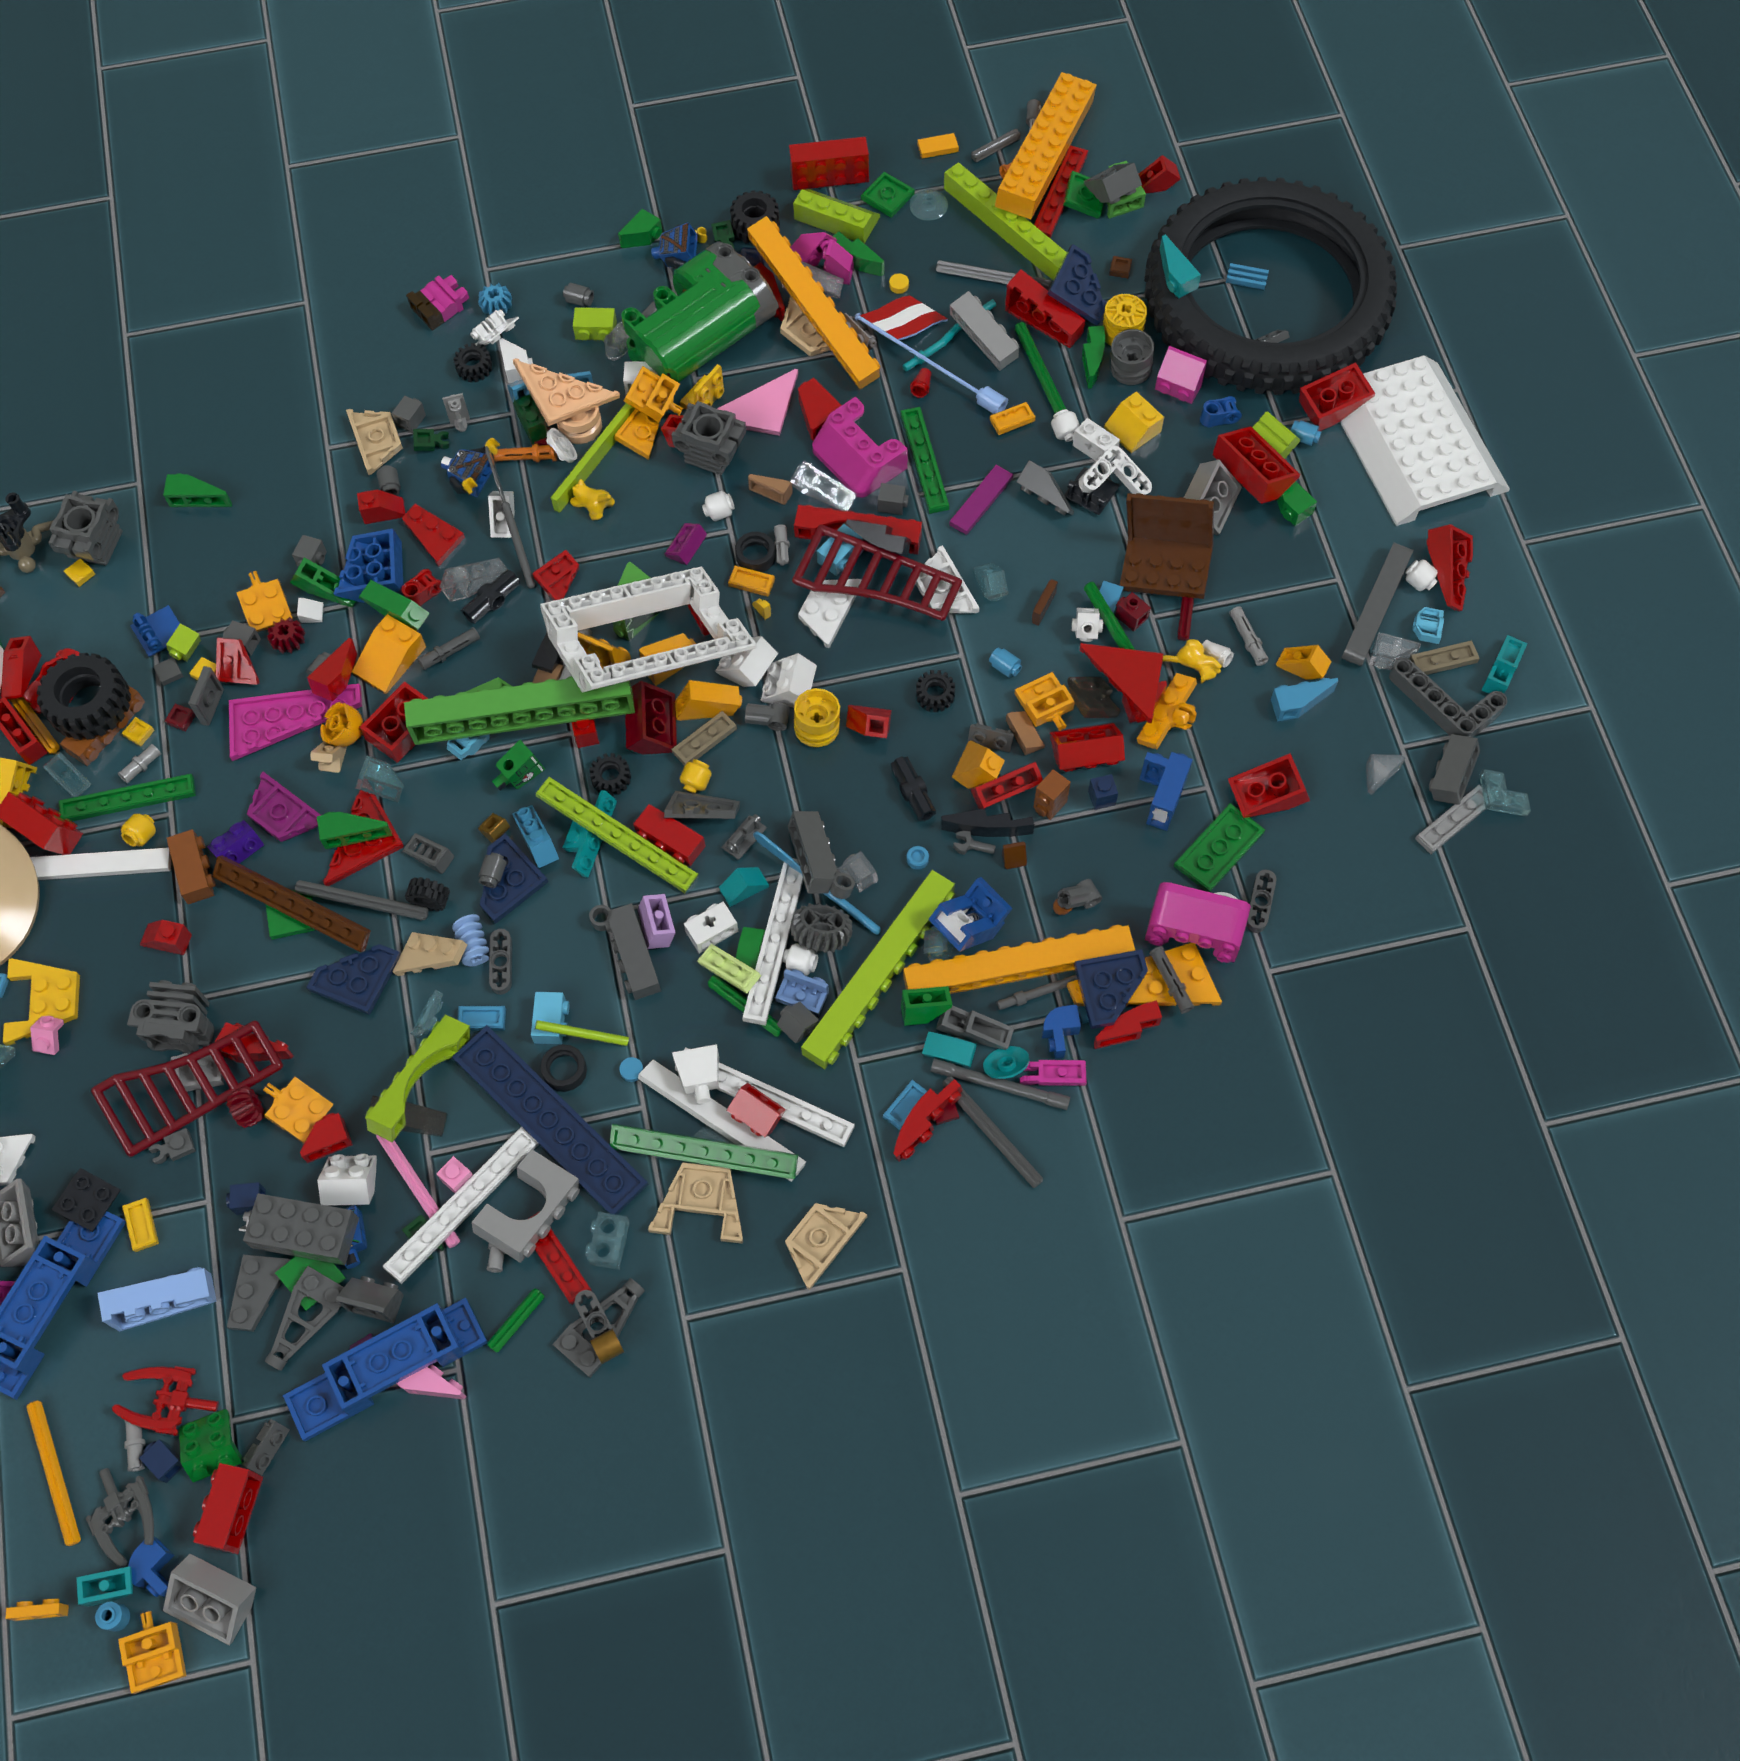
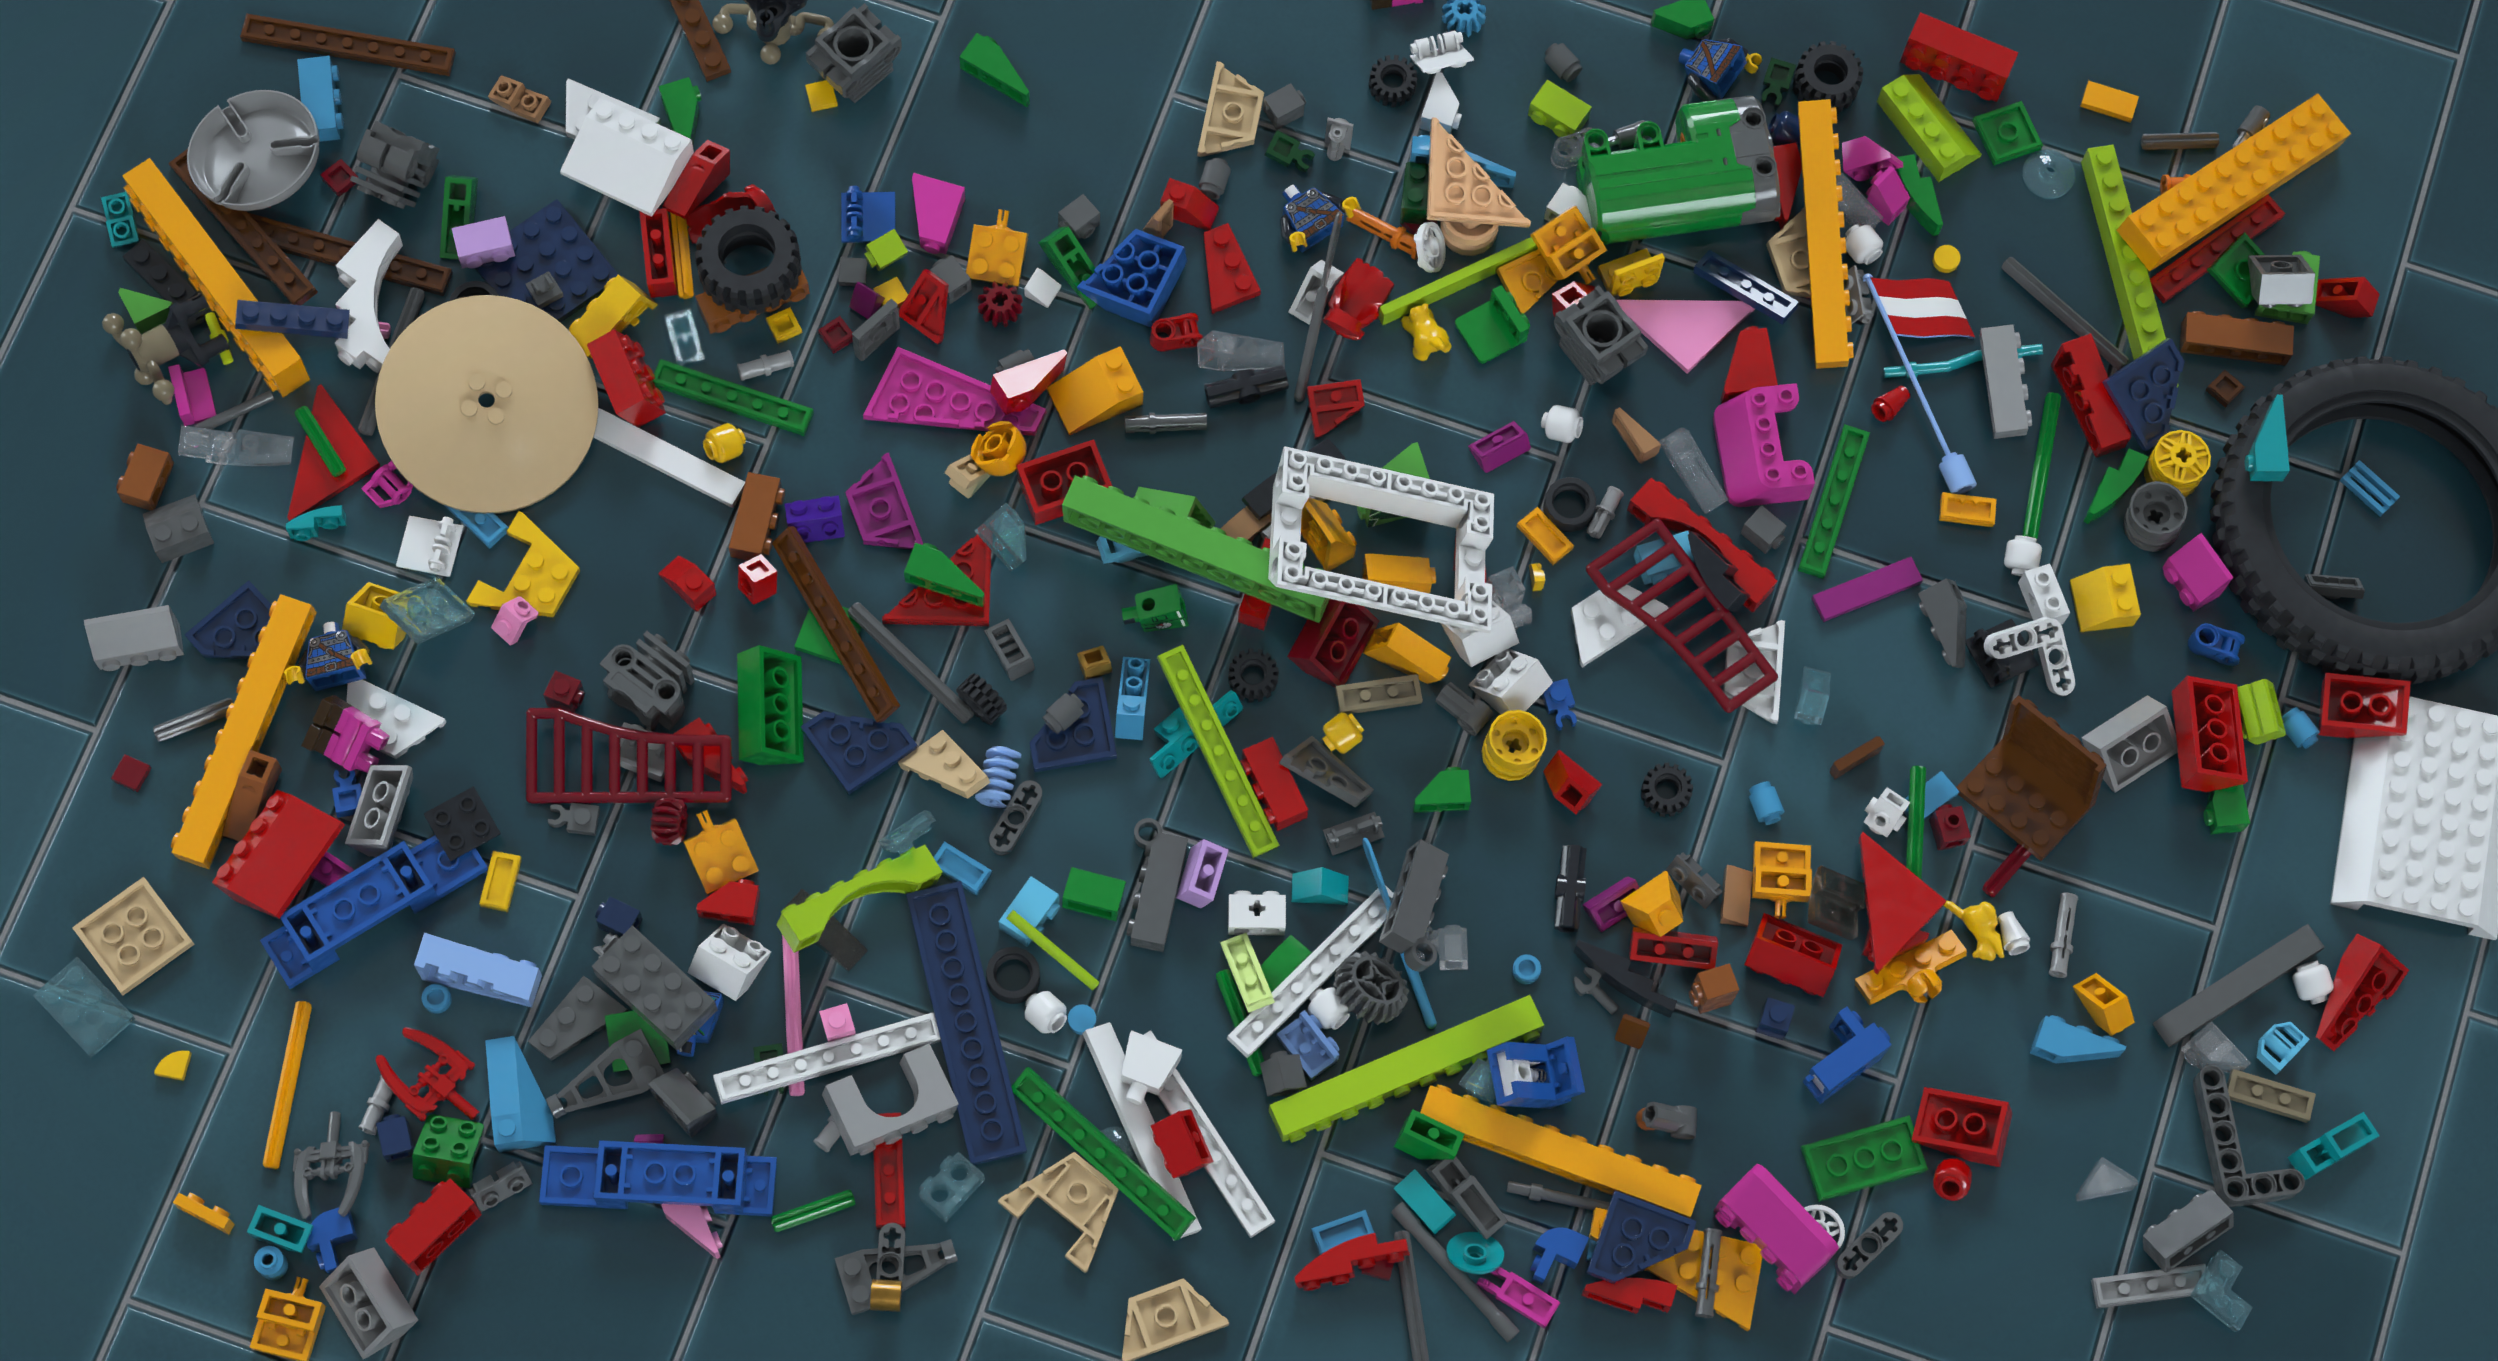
camera: 25 degrees right, 5 degrees up
(113, 1061) = (564, 692): none -> dark red brick
(137, 1338) = (436, 998): none -> dark azure tile
(186, 682) = (865, 300): none -> magenta slope
(205, 600) = (937, 211): none -> dark pink slope
(215, 905) = (757, 579): none -> red brick
(244, 1378) = (516, 1102): none -> dark azure wedge
(275, 987) = (770, 707): none -> green slope
(367, 520) = (1161, 221): none -> medium nougat slope
(394, 604) = (1133, 340): green slope -> none
(532, 504) = (1357, 300): none -> red hair
(587, 979) = (1093, 894): none -> green brick
(602, 1079) = (1045, 1012): none -> white head
(635, 471) = (1493, 326): none -> green bracket
(753, 624) = (1508, 594): none -> clear brick
(784, 362) = (1746, 287): none -> dark blue plate
(790, 775) = (1445, 792): none -> green slope
(827, 676) = (1559, 699): none -> blue plate
(843, 298) = (1863, 244): none -> white head
(945, 787) = (1606, 907): none -> magenta slope
(1110, 232) = (2236, 338): none -> dark orange brick
(1286, 825) = (1952, 1179): none -> red head

